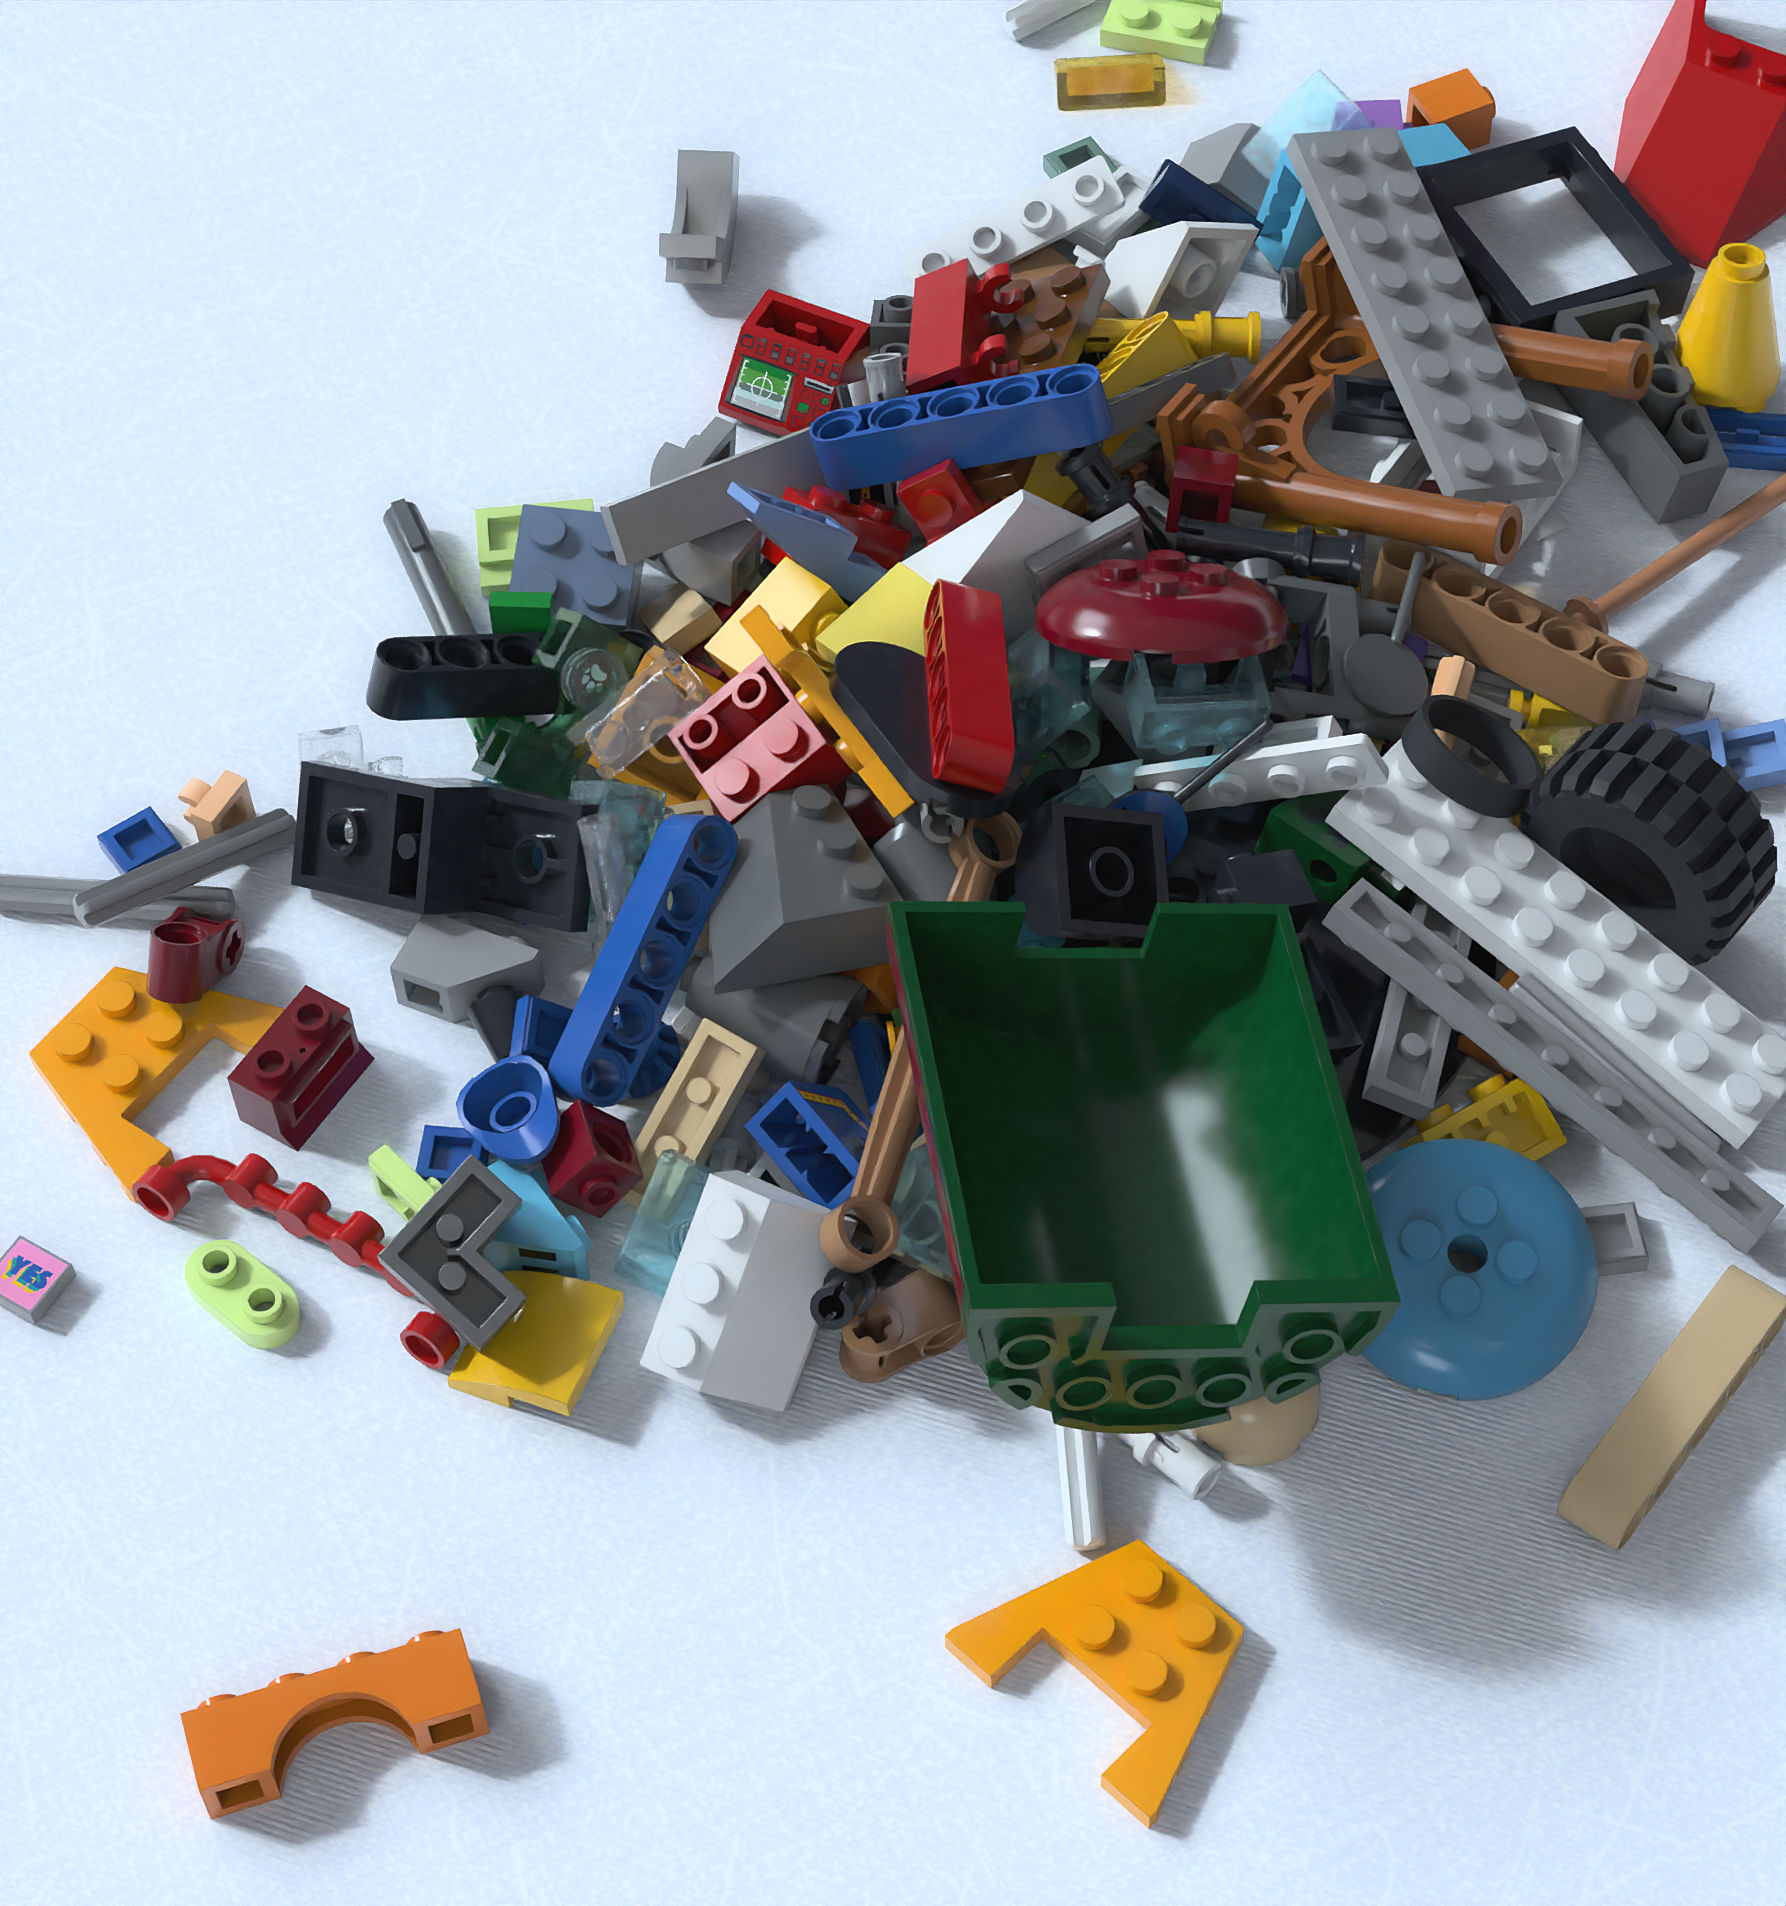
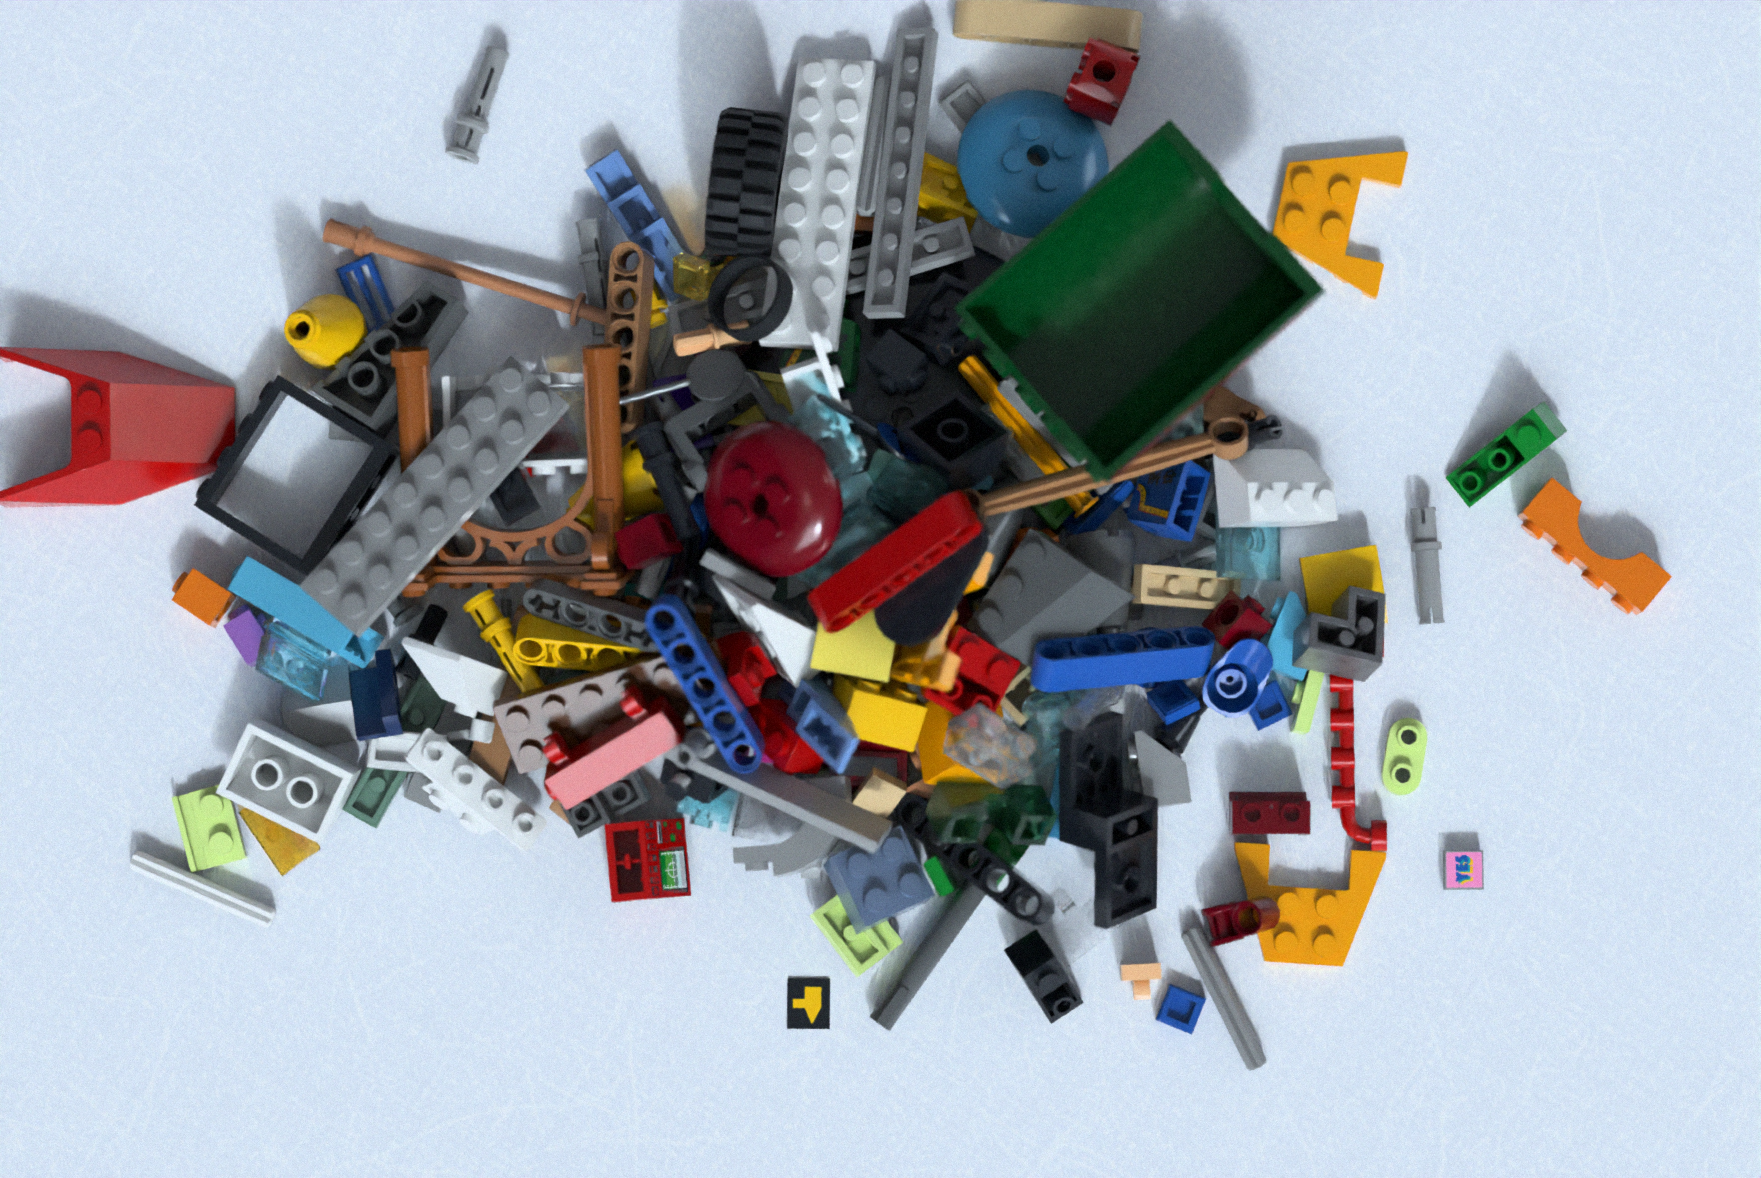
camera: 125 degrees left, 30 degrees up
(184, 868) = (1190, 961): light grey axle -> none
(308, 695) = (1043, 976): none -> black slope
(489, 471) = (808, 1003): none -> black sticker
(506, 1482) = (1427, 565): none -> light grey pin
(569, 1689) = (1506, 454): none -> green slope
(592, 677) = (975, 792): clear light blue tile -> none
(704, 218) = (562, 992): light grey arch -> none
(1165, 89) = (288, 780): none -> white slope
(1248, 295) = (426, 633): none -> black axle
(1536, 1409) = (1103, 62): none -> red brick

